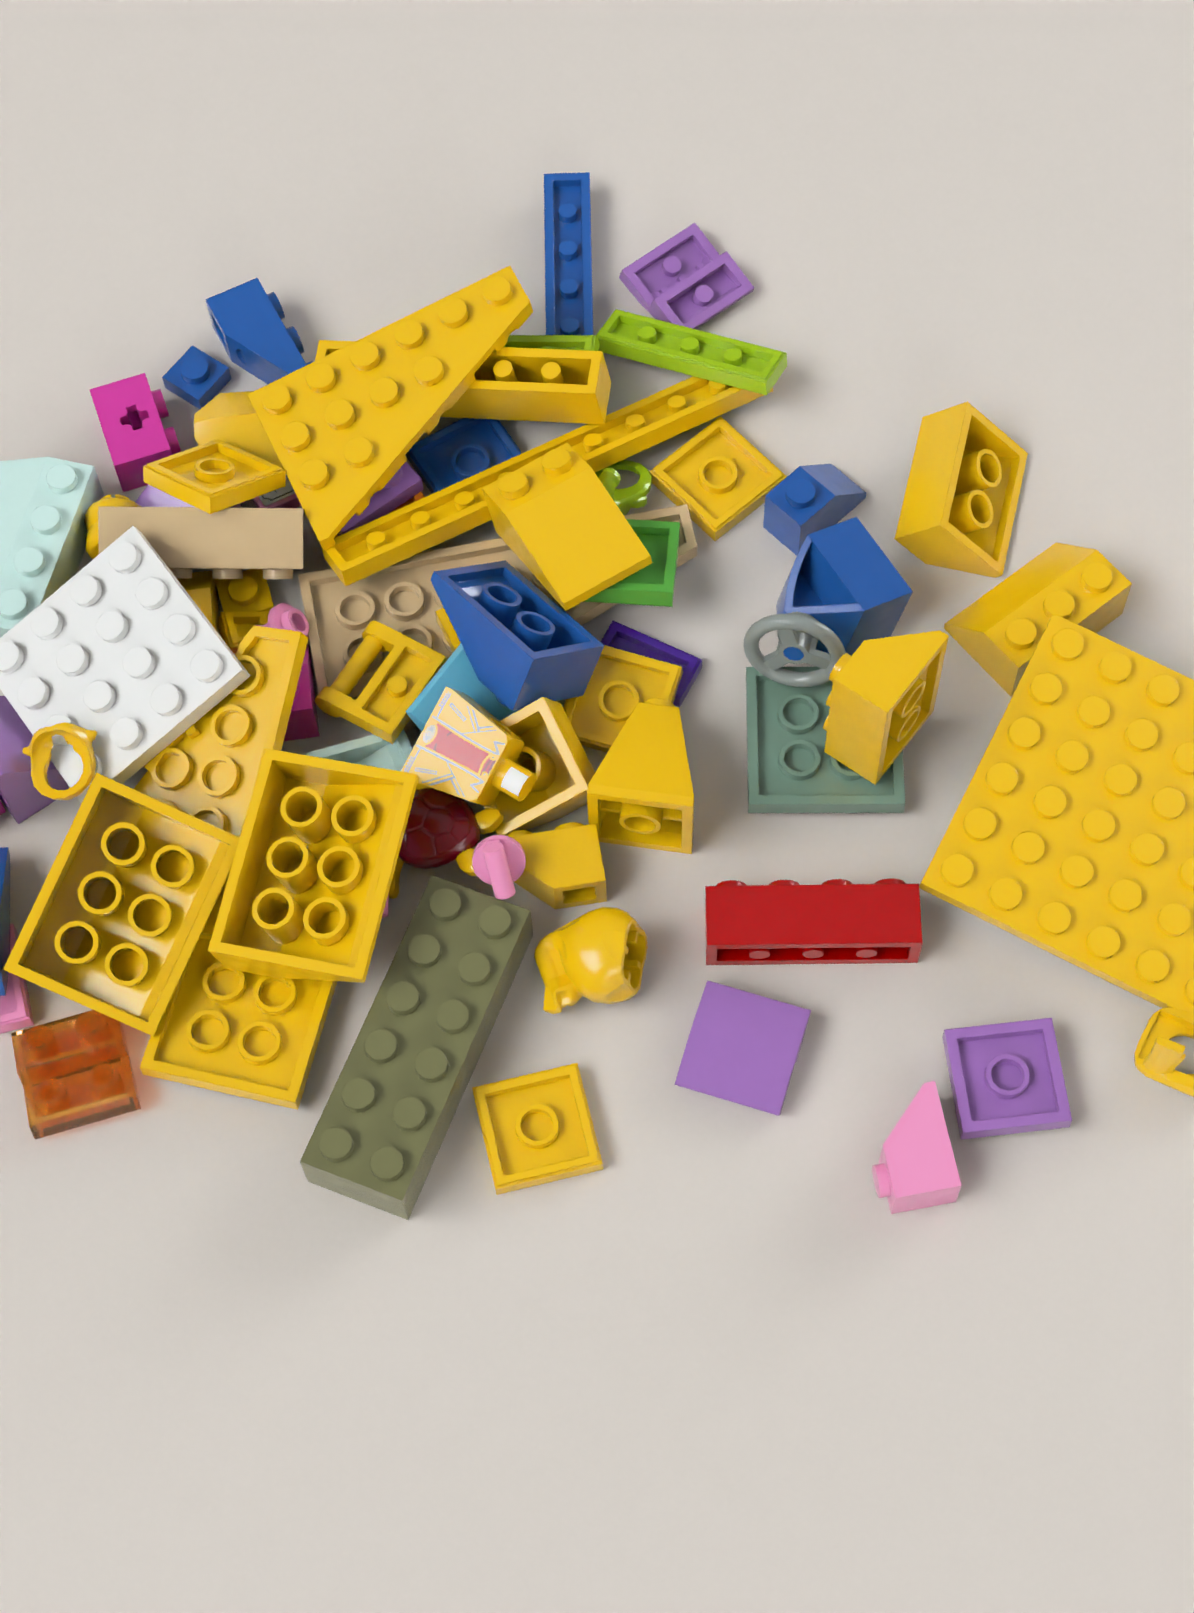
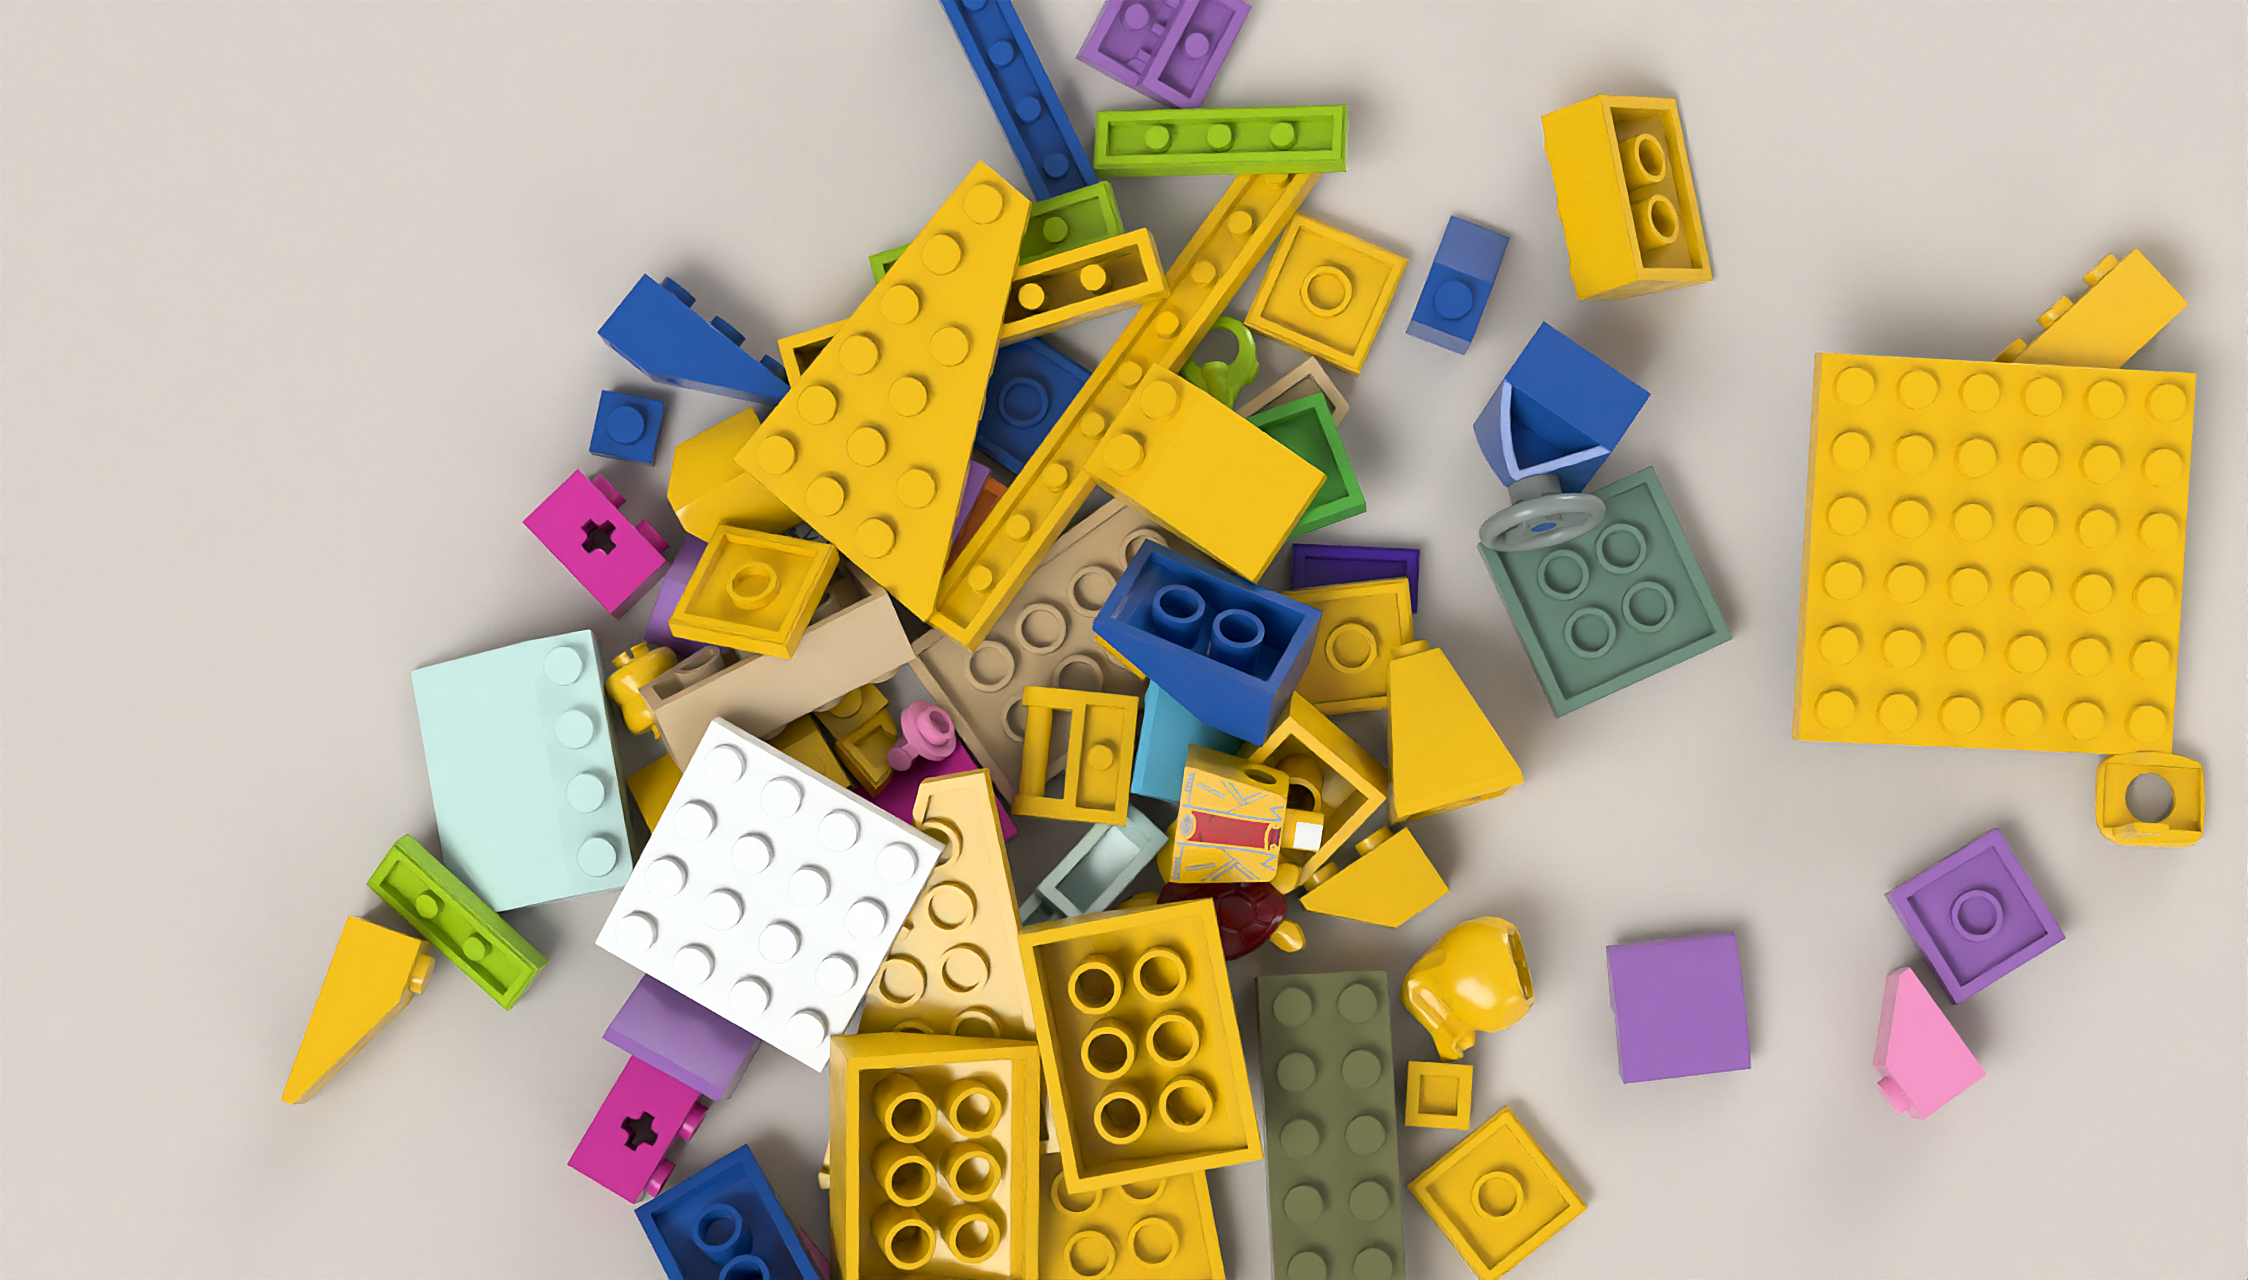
camera: 30 degrees left, 20 degrees up
(40, 754) = (746, 1040): yellow piece -> none
(499, 862) = (1327, 930): bright pink plate -> none
(528, 1031) = (1437, 1095): none -> yellow plate
(812, 923) = (1690, 830): red brick -> none
(882, 699) = (1682, 564): yellow slope -> none
(1011, 618) = (1773, 310): yellow slope -> none

